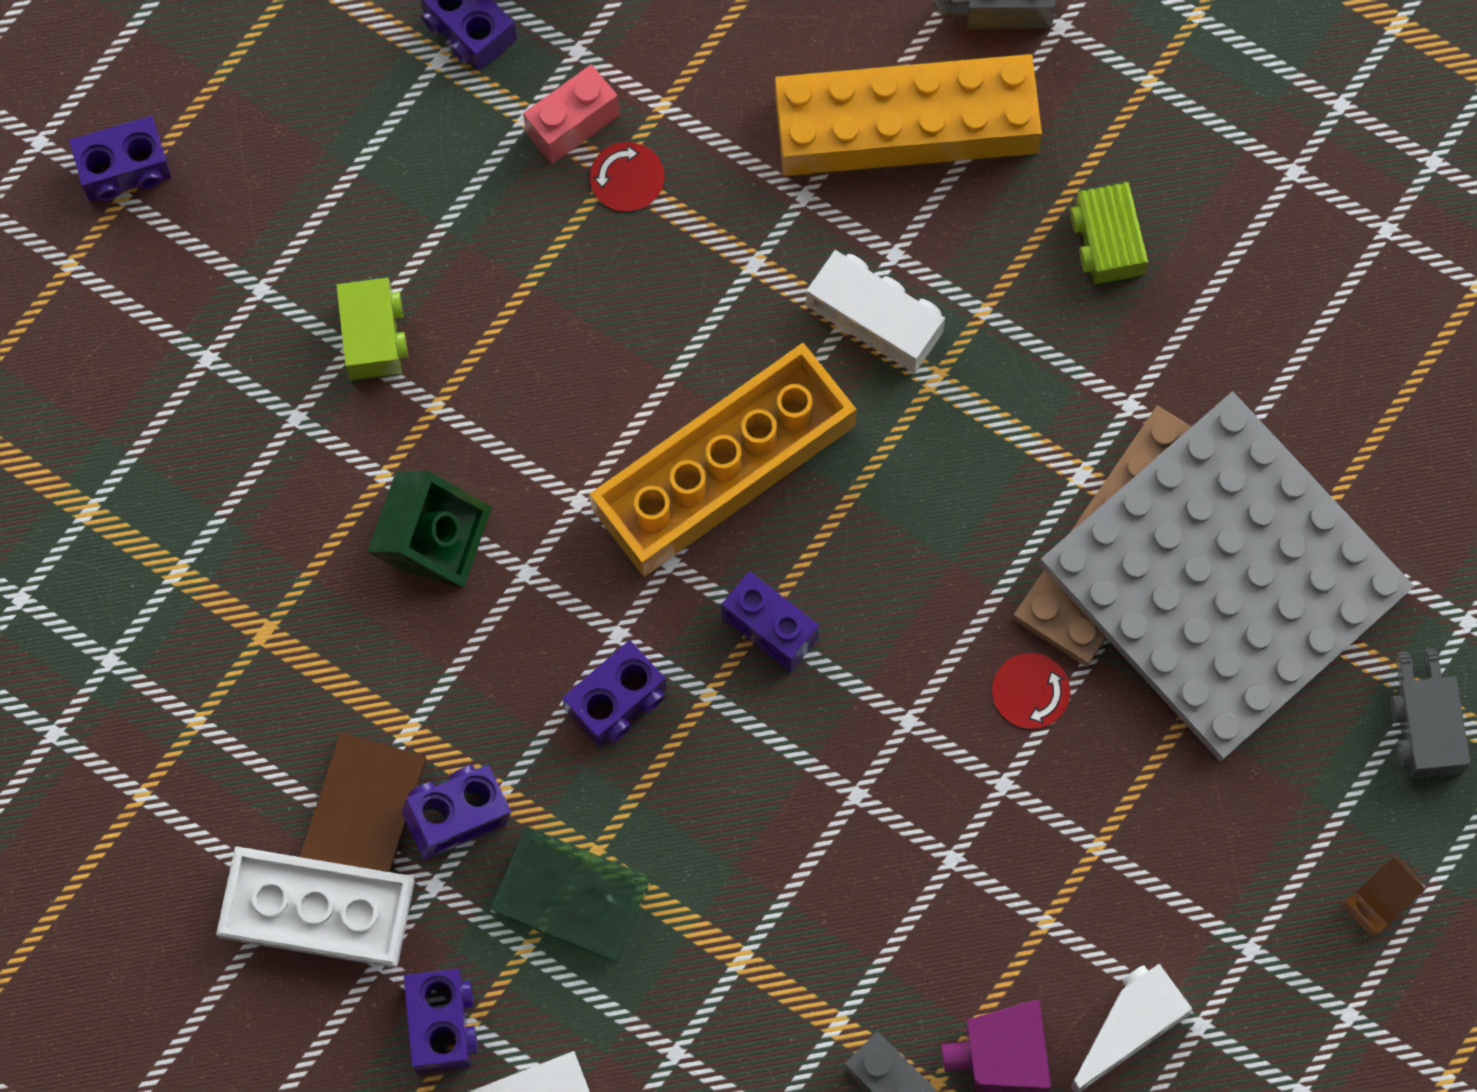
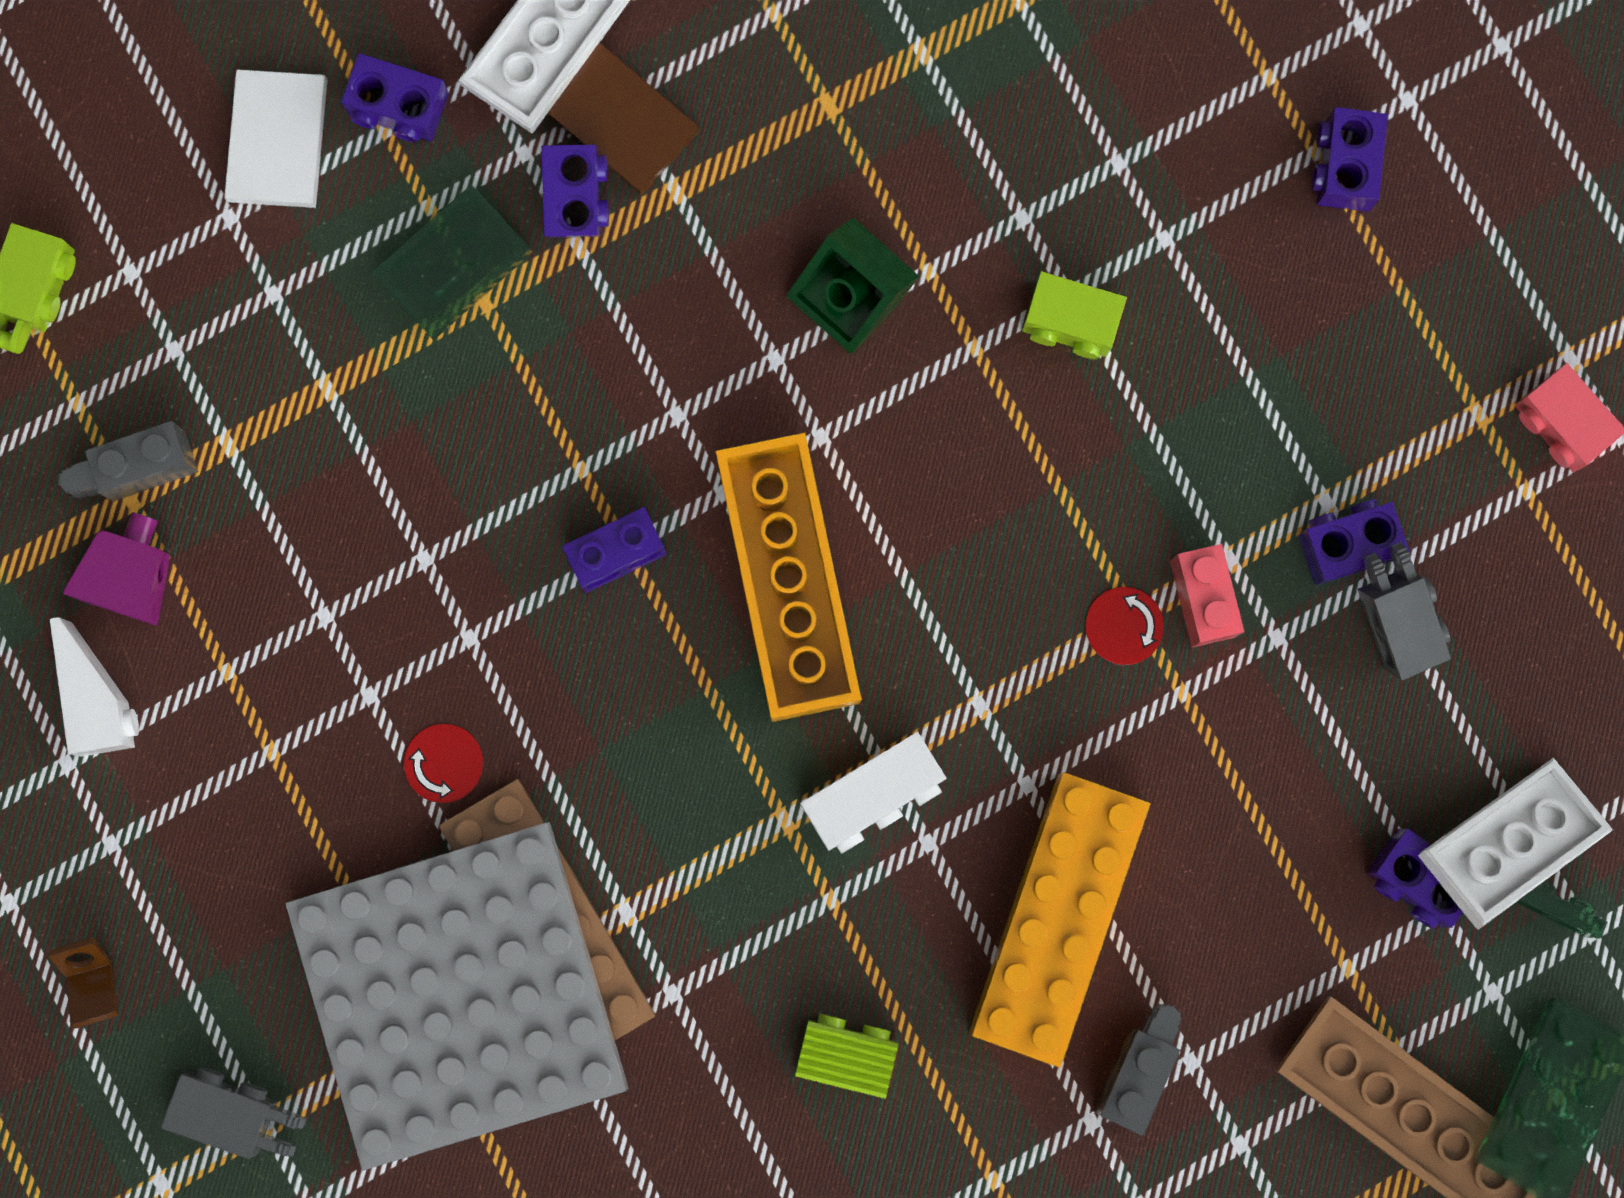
camera: 110 degrees right, 10 degrees up
(606, 686) = (623, 379): dark purple brick -> none

